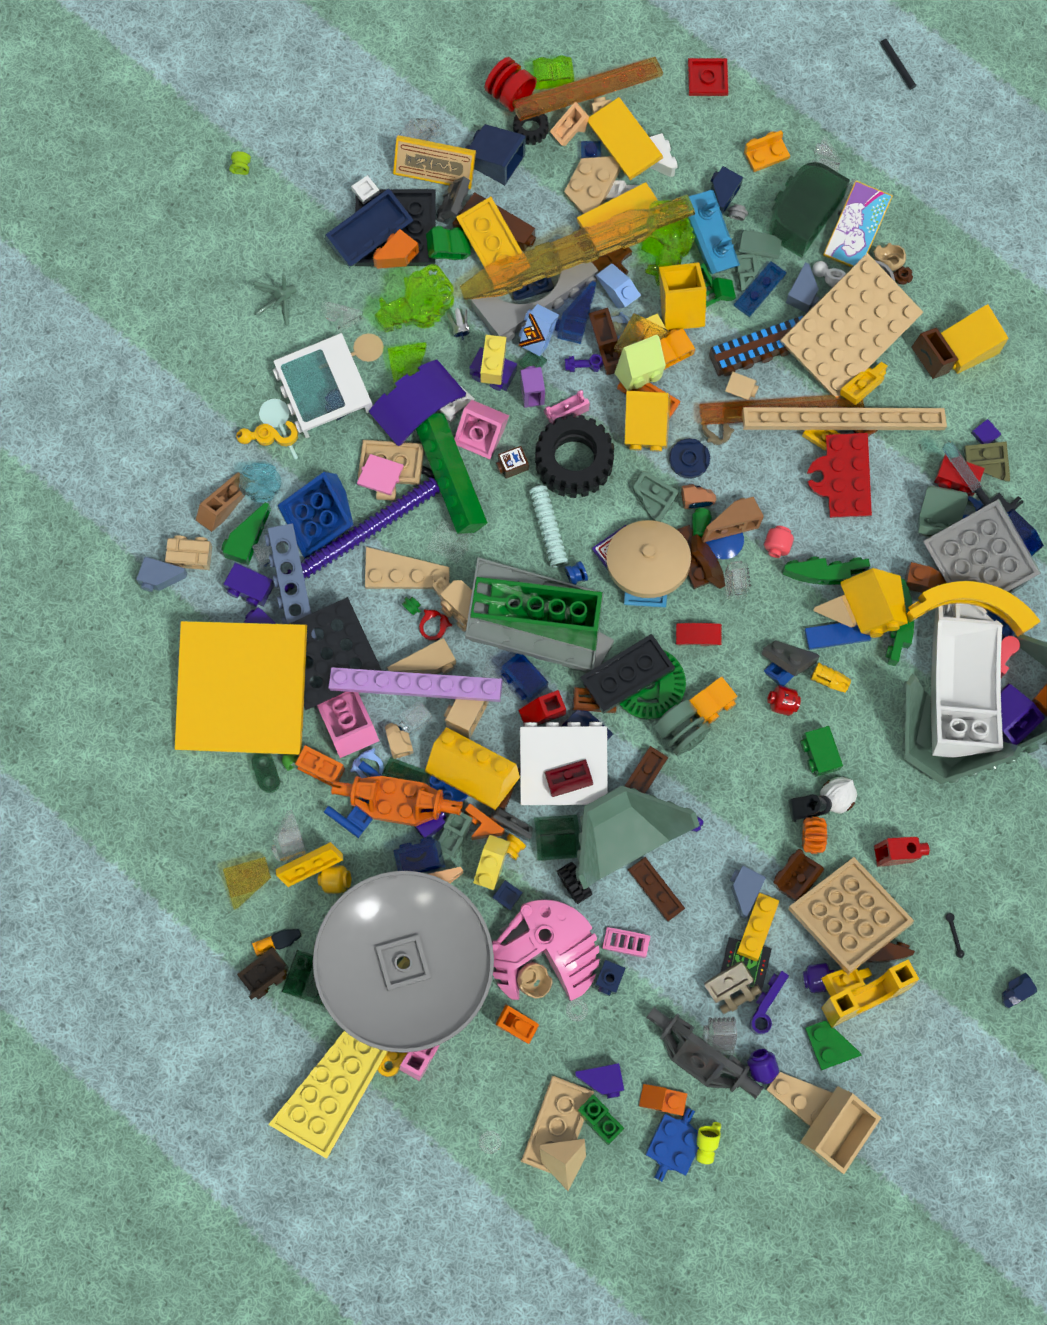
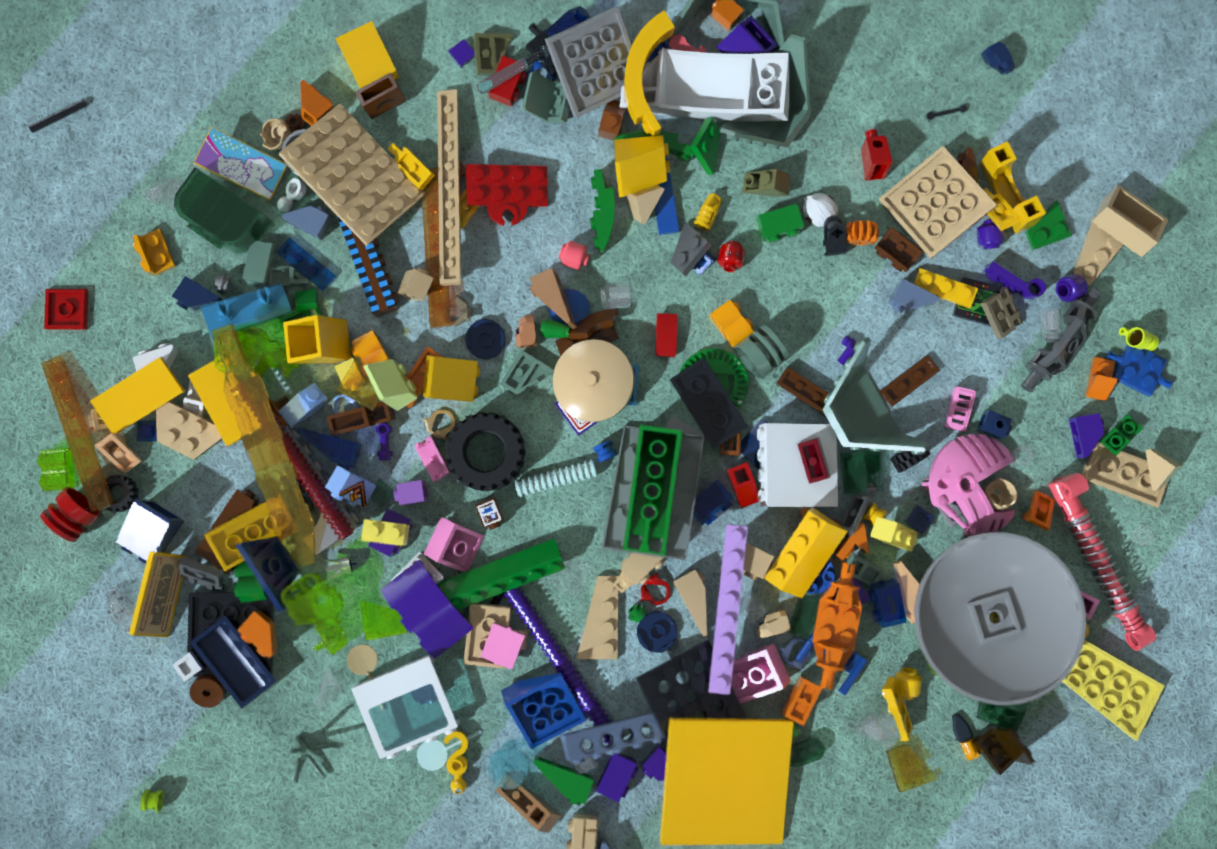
camera: 95 degrees left, 10 degrees up
(336, 202) = (204, 698): none -> reddish brown piece
(391, 633) = (661, 627): none -> dark blue tile
(462, 256) = (270, 566): none -> dark blue wing
(510, 1064) = (1066, 493): none -> coral piece
(543, 292) = (314, 486): none -> dark red piece
(604, 406) = (444, 432): none -> tan piece
(864, 738) = (767, 183): none -> olive slope
(898, 671) = (706, 145): none -> green wing
(923, 289) = (313, 104): none -> orange slope

